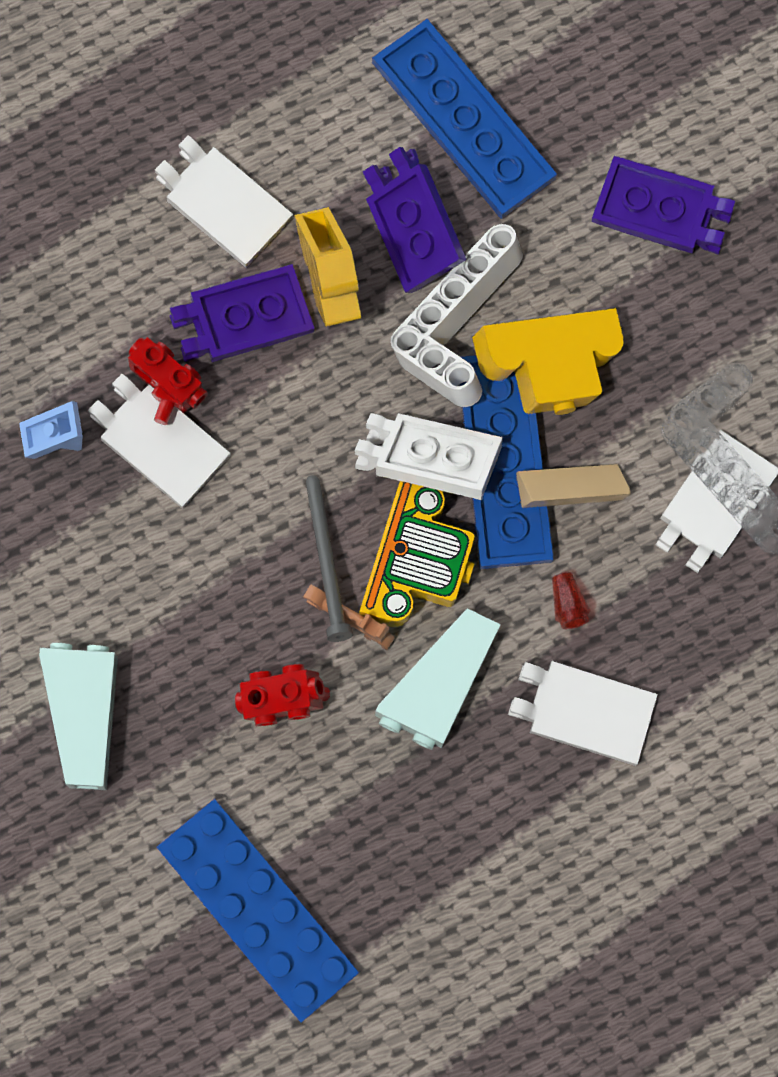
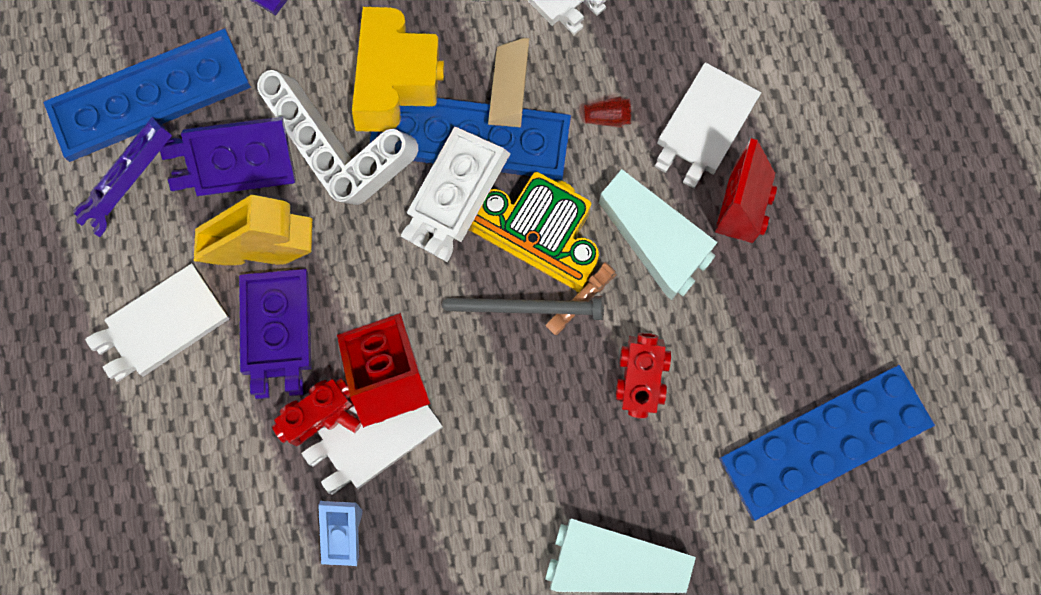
camera: 70 degrees left, 0 degrees up
(224, 429) = (382, 370): none -> red slope
(365, 120) = (122, 175): none -> dark purple tile
(502, 765) = (747, 195): none -> red slope

